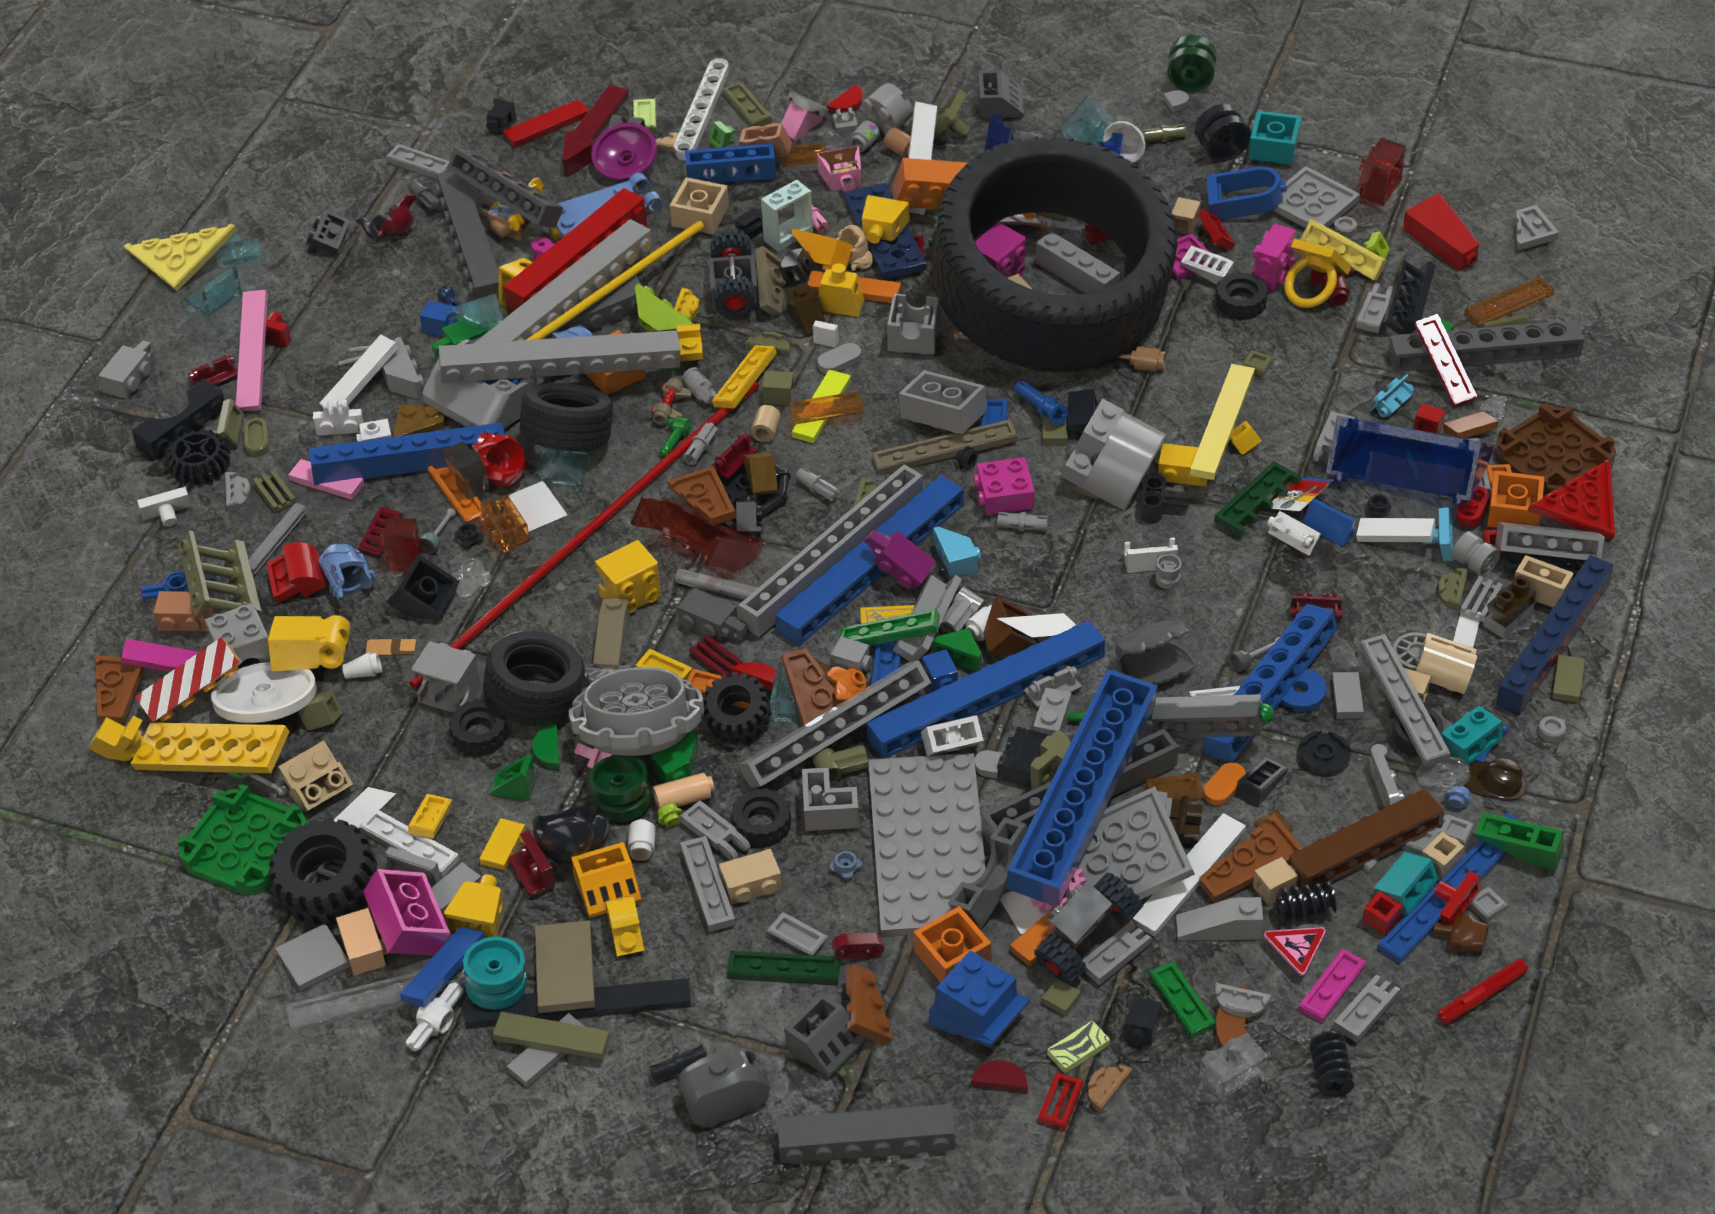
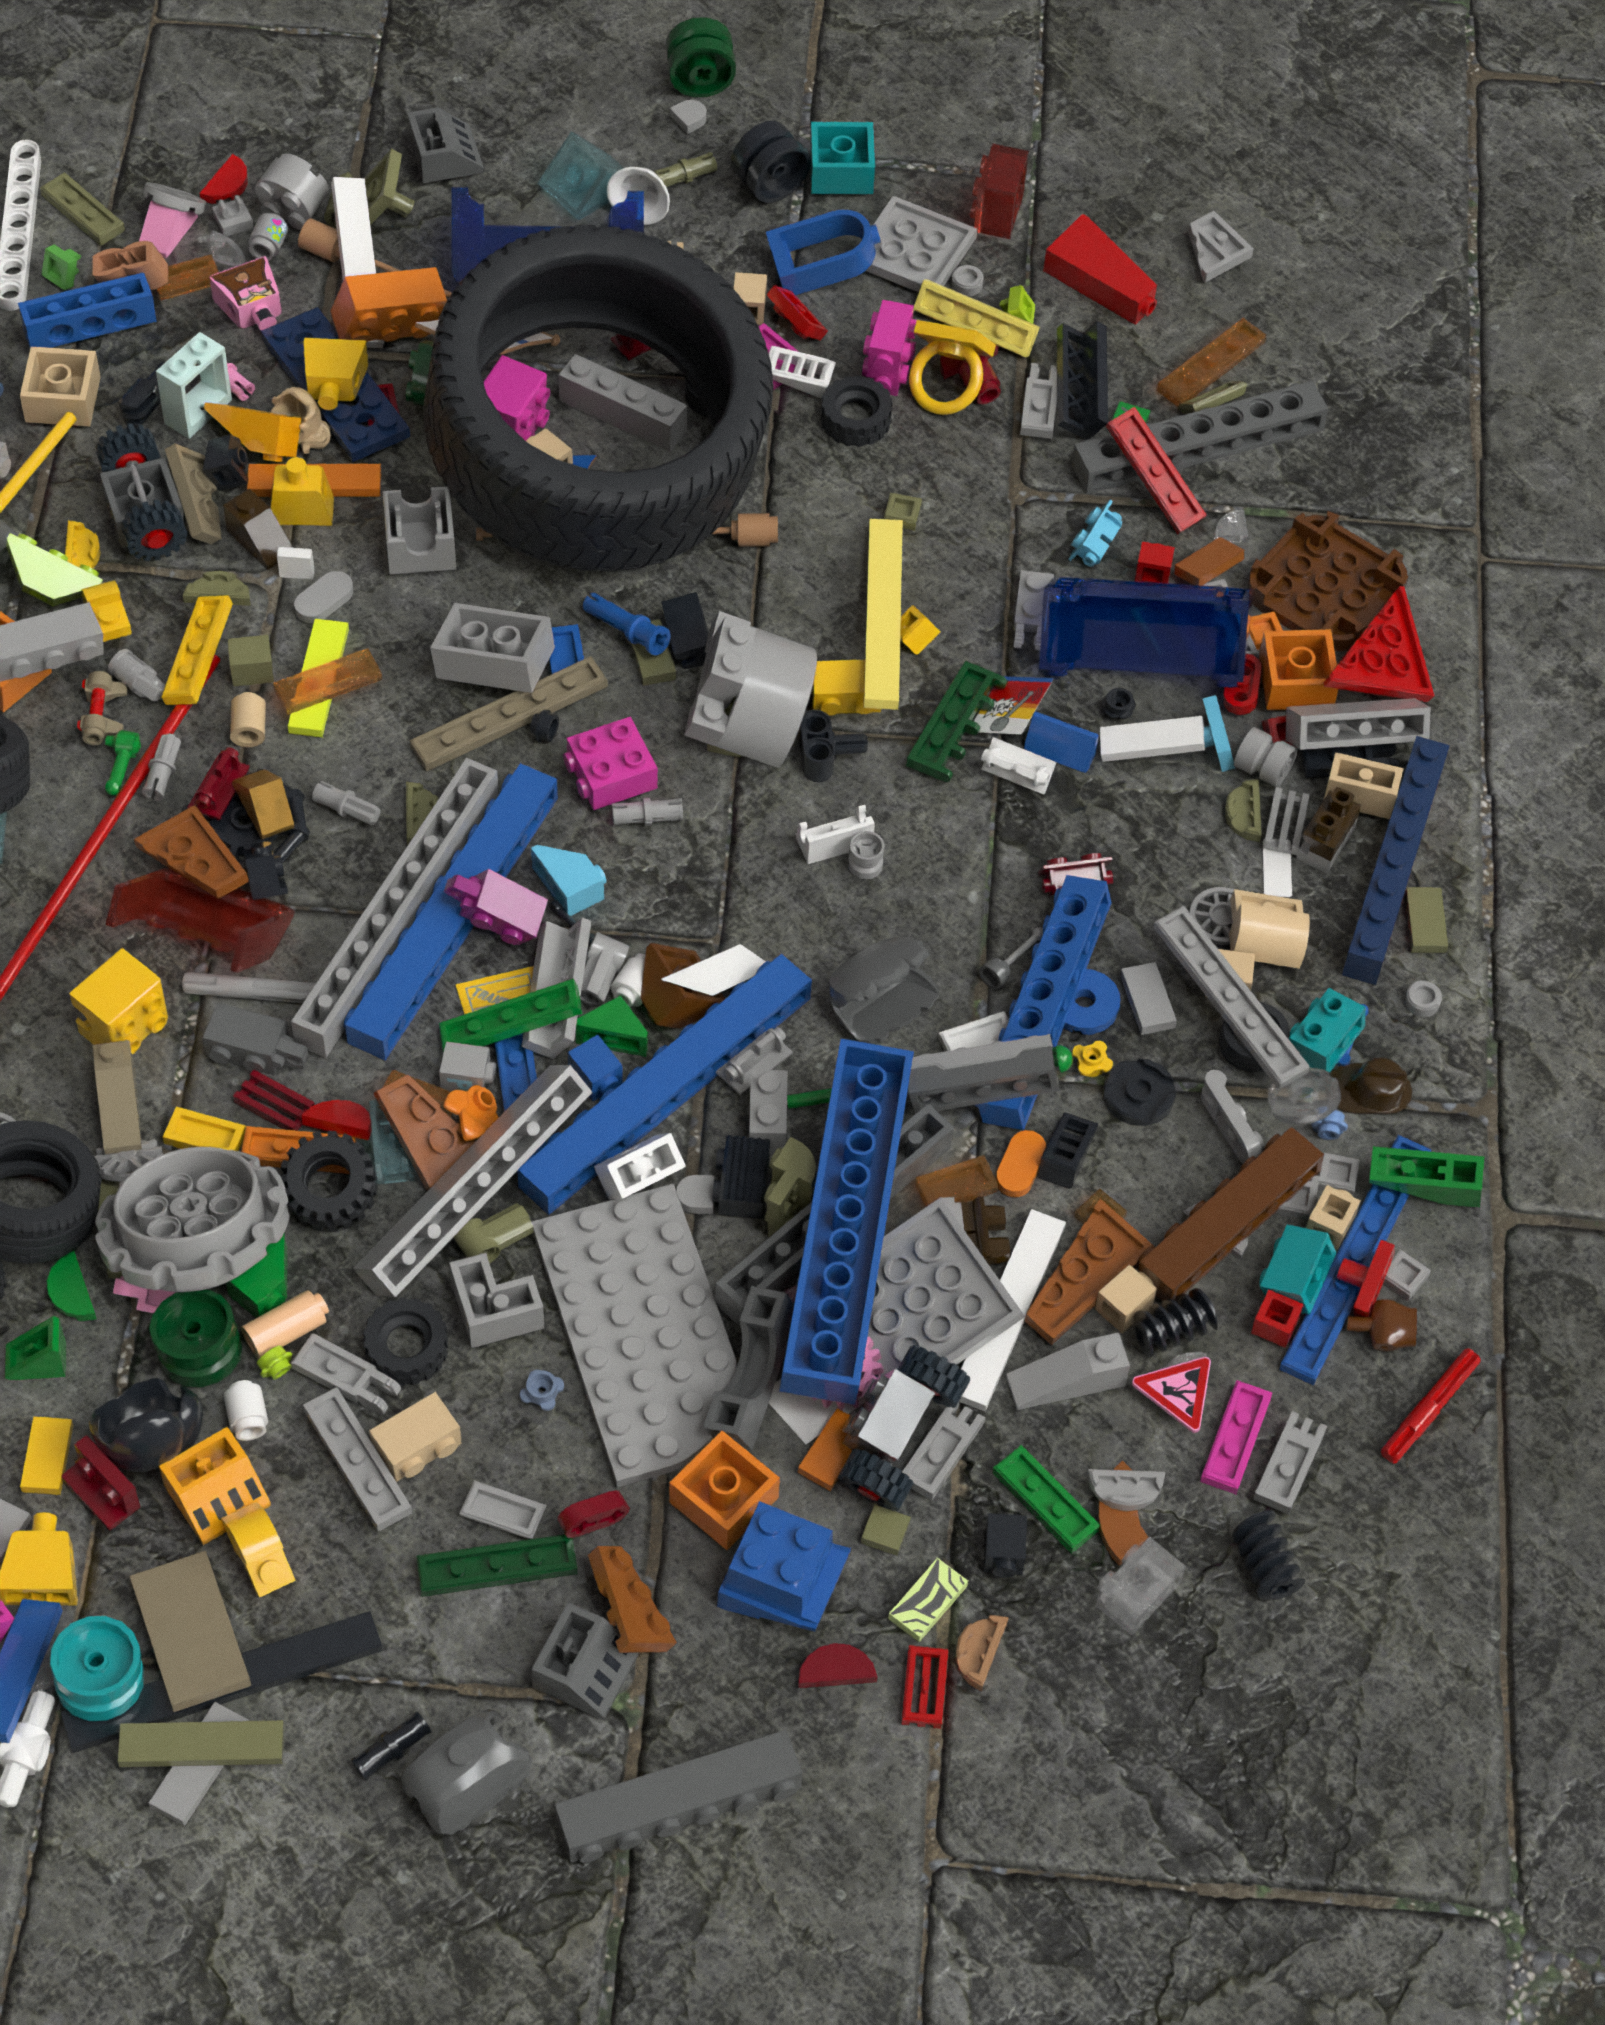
camera: 20 degrees left, 10 degrees up
(1295, 726) = (1090, 1067): none -> yellow plate

